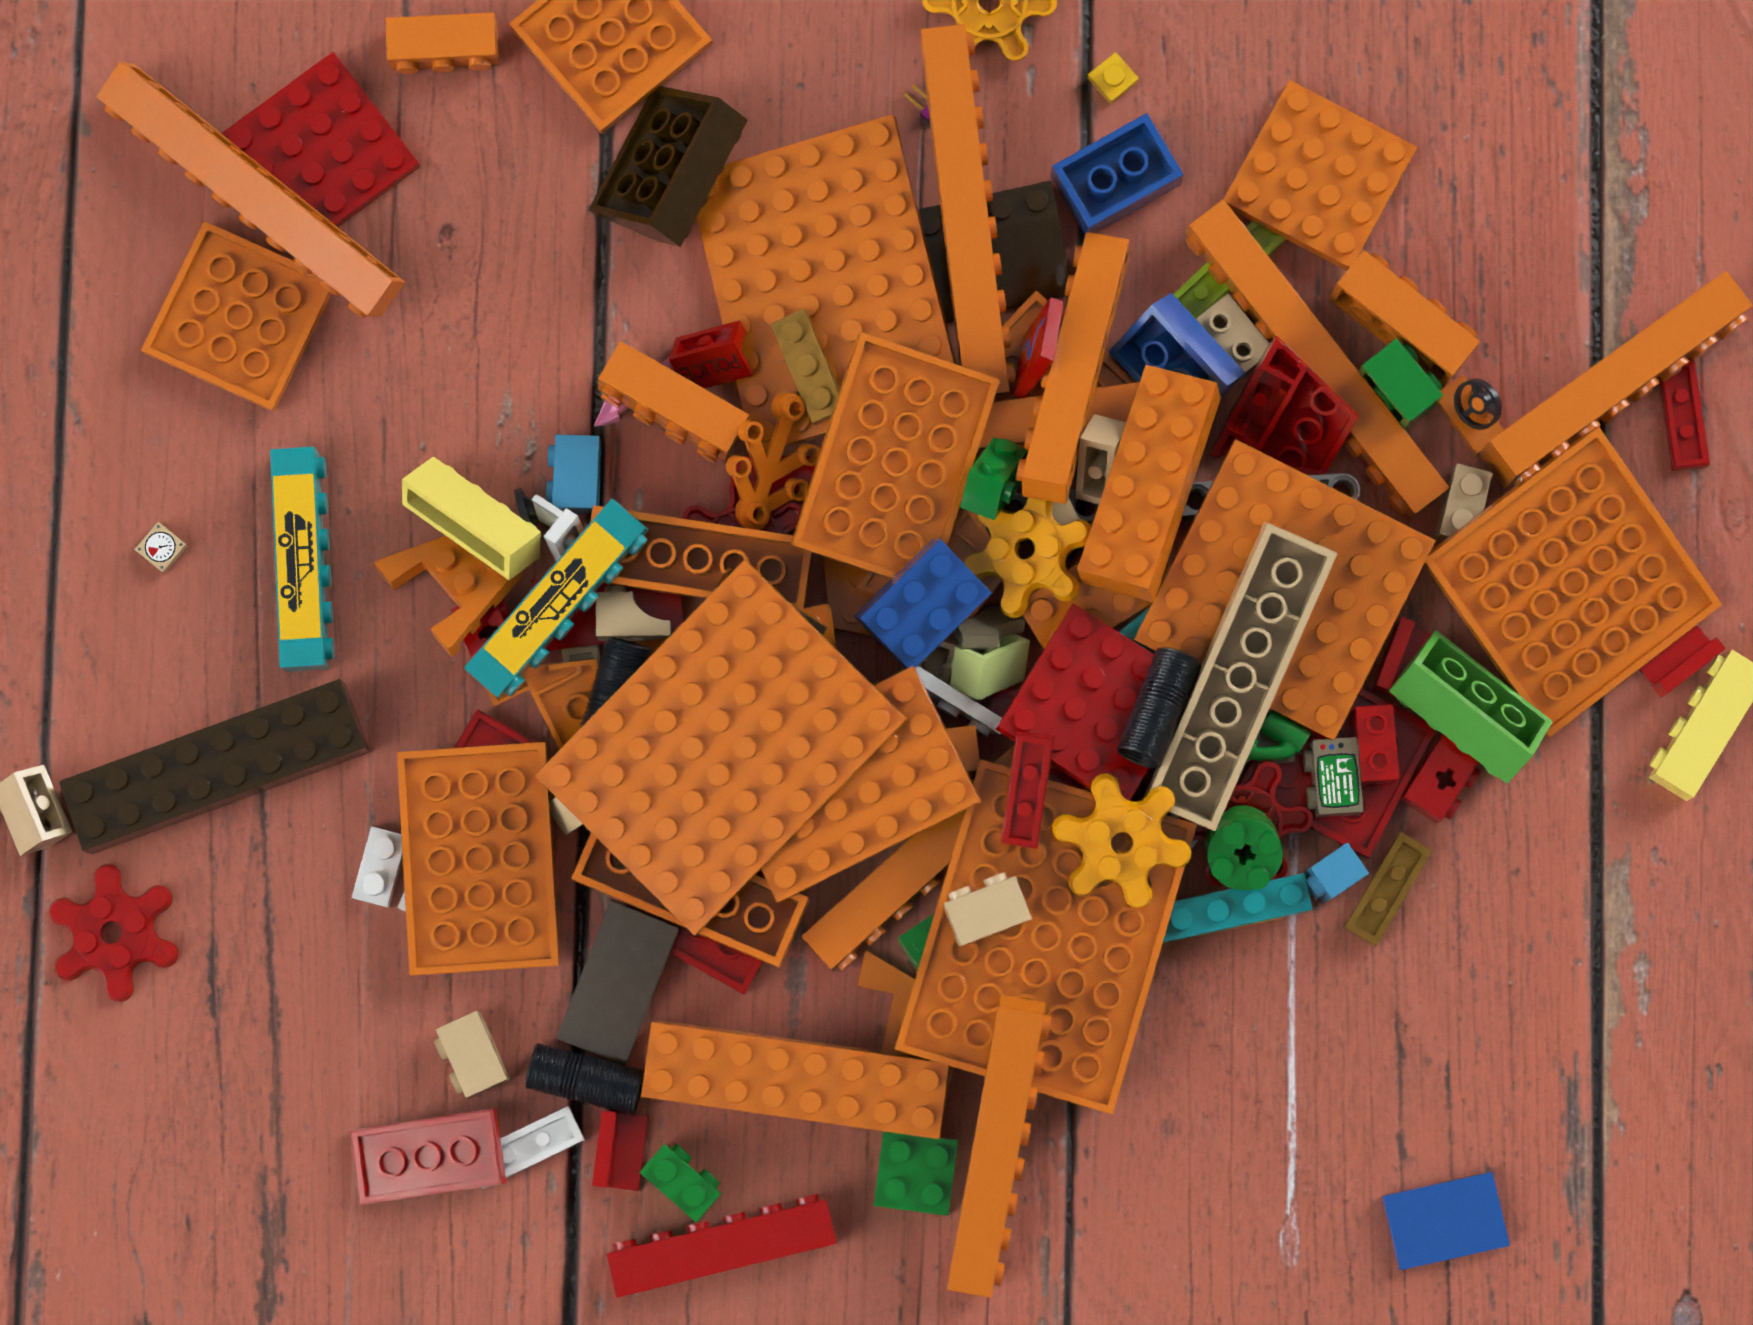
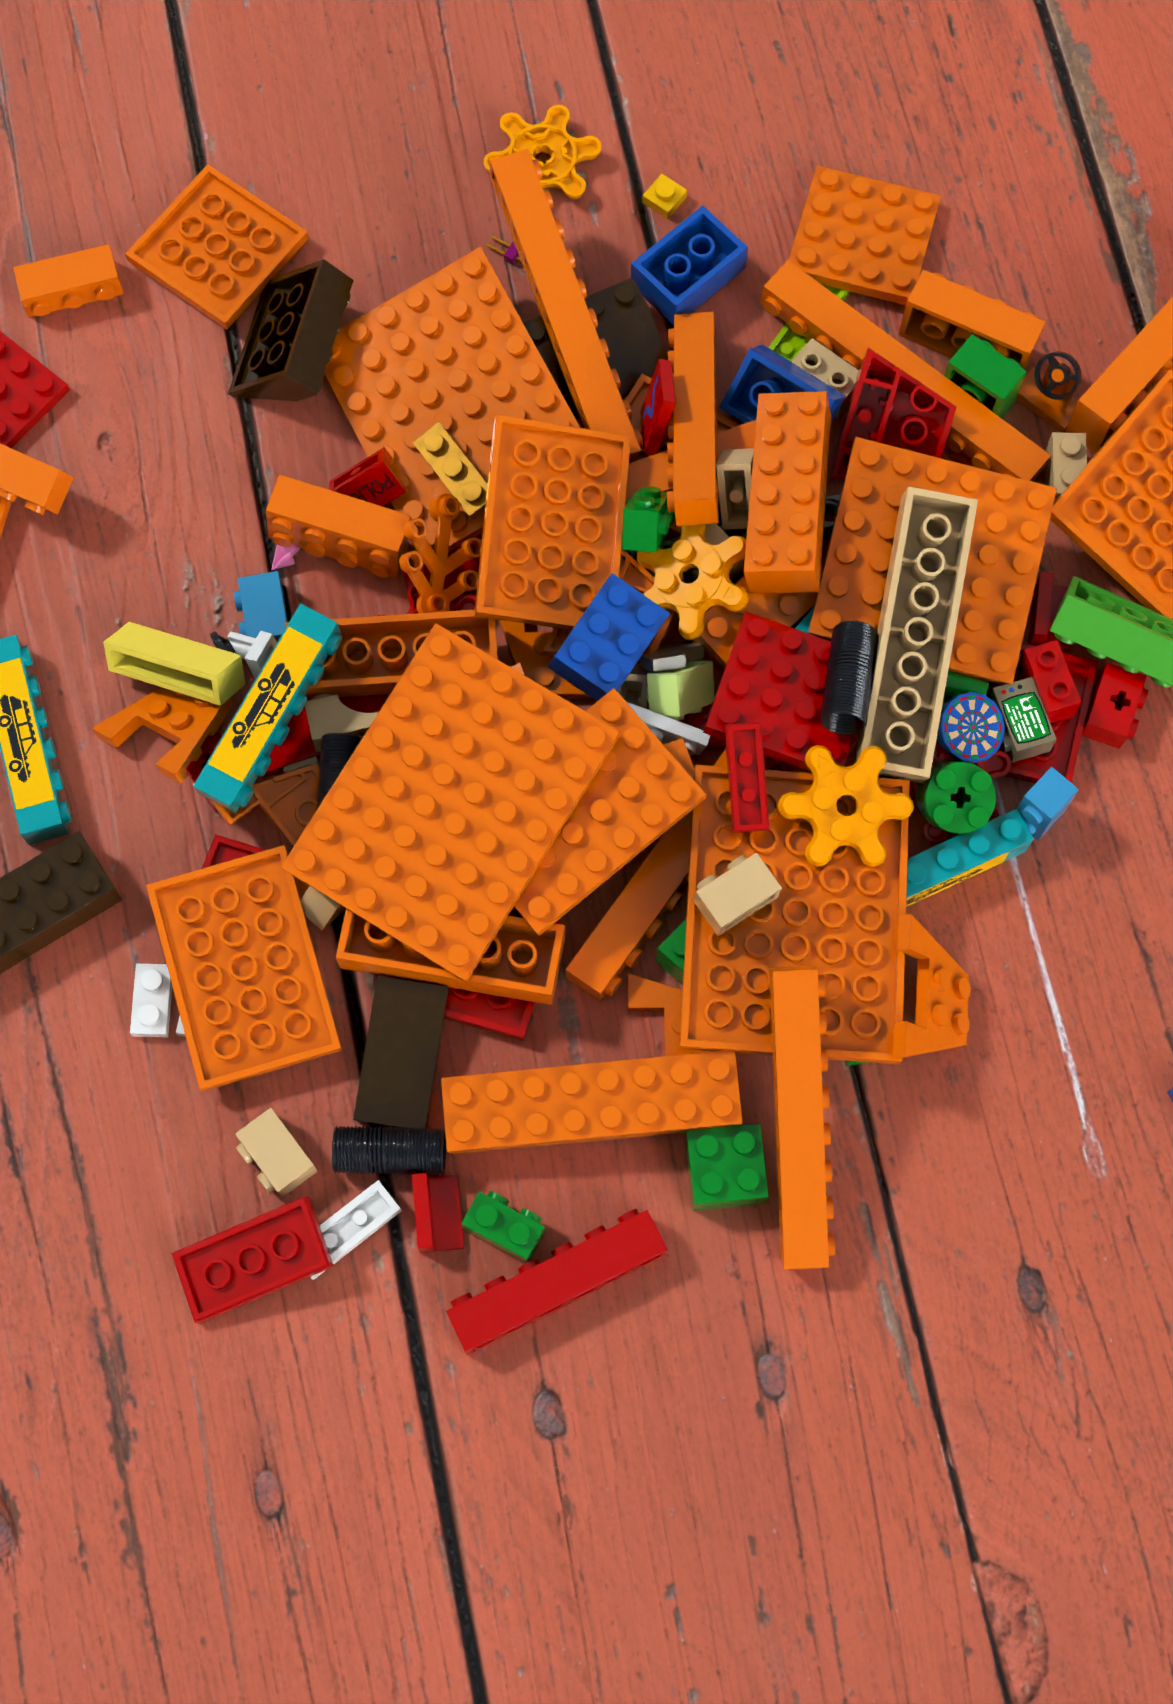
camera: 15 degrees left, 10 degrees down
(1172, 1053) = (940, 995): none -> orange wing
(1276, 779) = (970, 727): none -> blue tile
(1387, 889) = (1094, 813): pearl gold plate -> none

